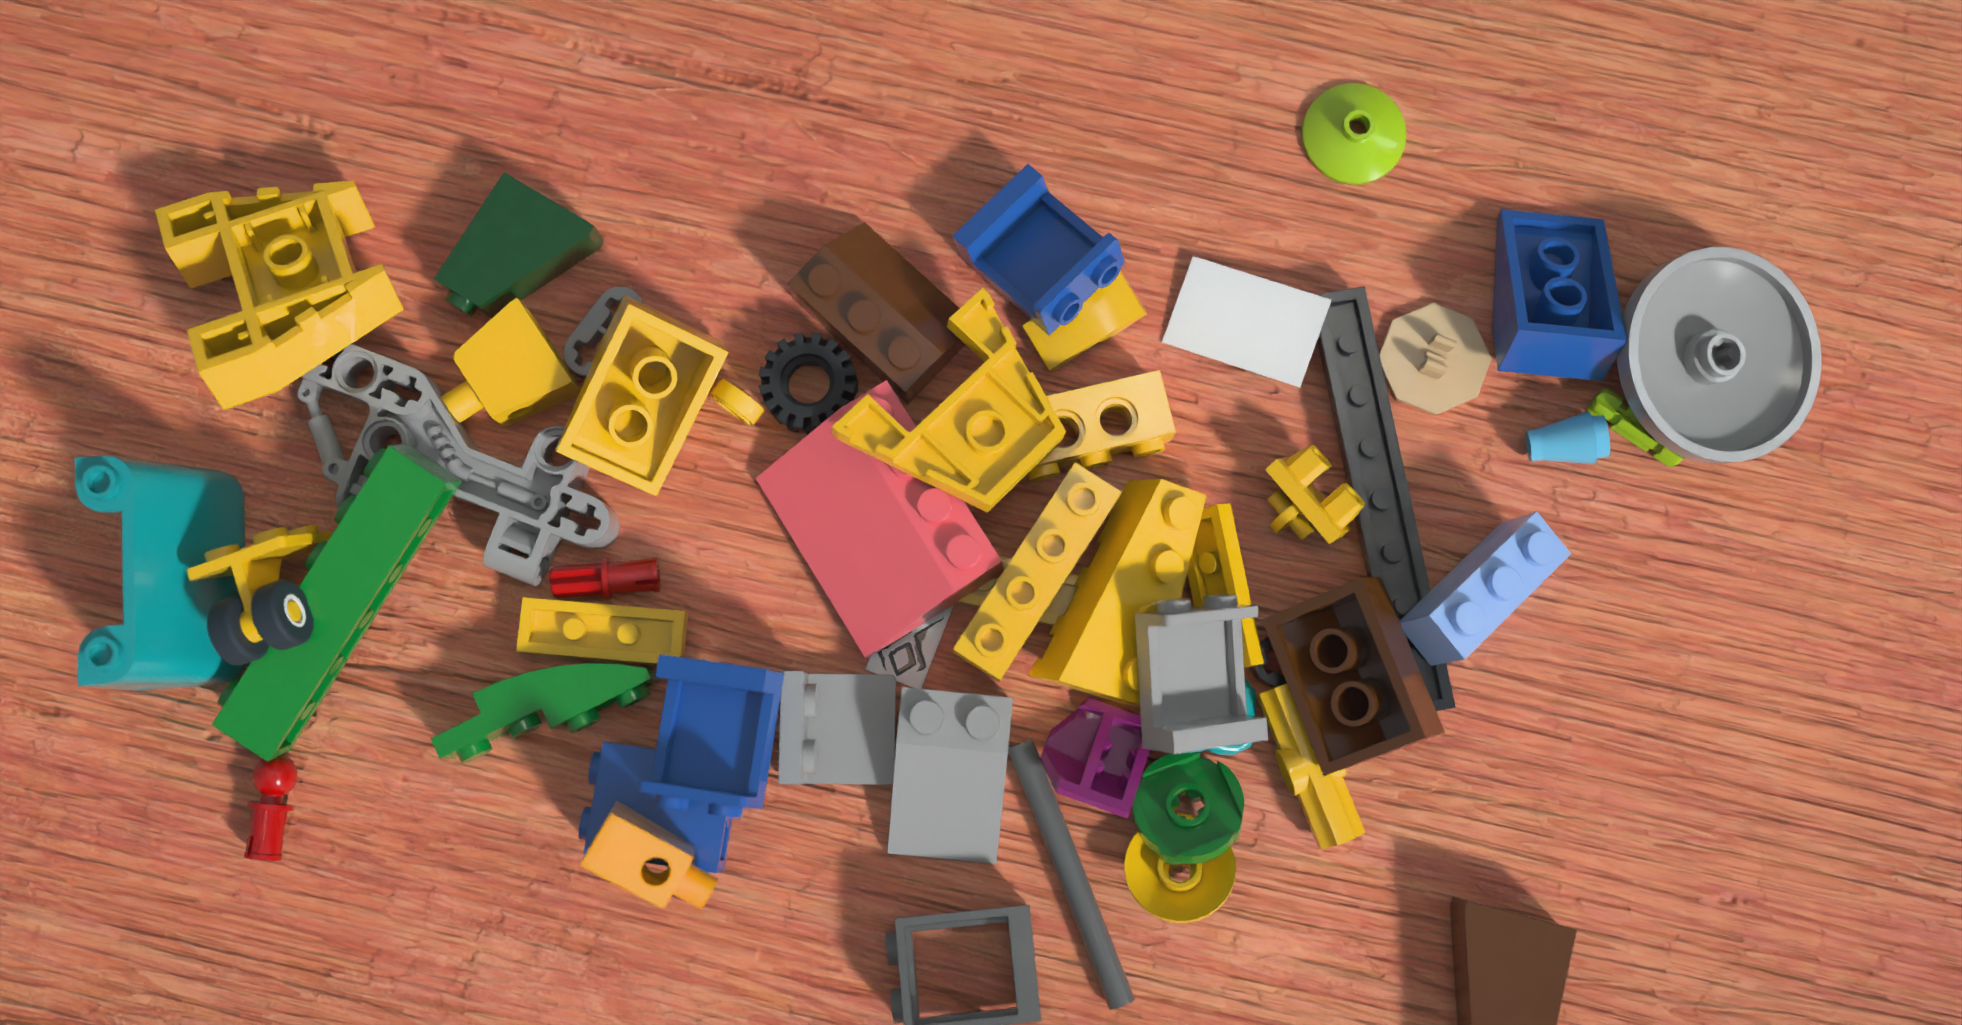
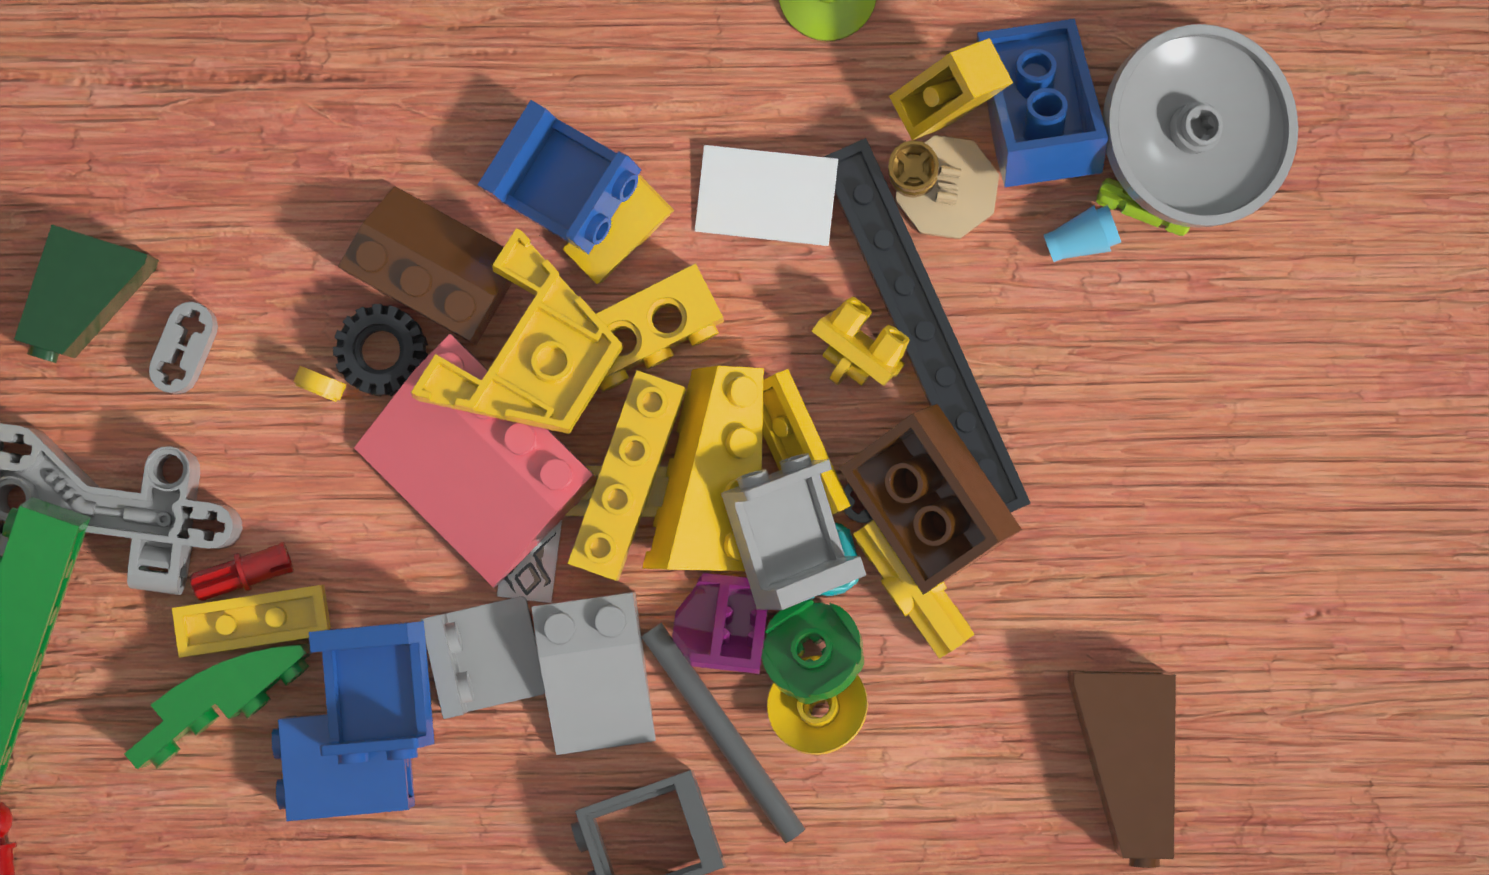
camera: 10 degrees left, 5 degrees up
(510, 370) = (105, 404): yellow torso -> none
(628, 842) = (325, 799): light orange torso -> none
(641, 395) = (231, 399): yellow slope -> none
(1415, 320) = (917, 161): none -> pearl gold wheel
(1468, 253) = (950, 89): none -> yellow brick
(1484, 589) = (1031, 392): light blue brick -> none

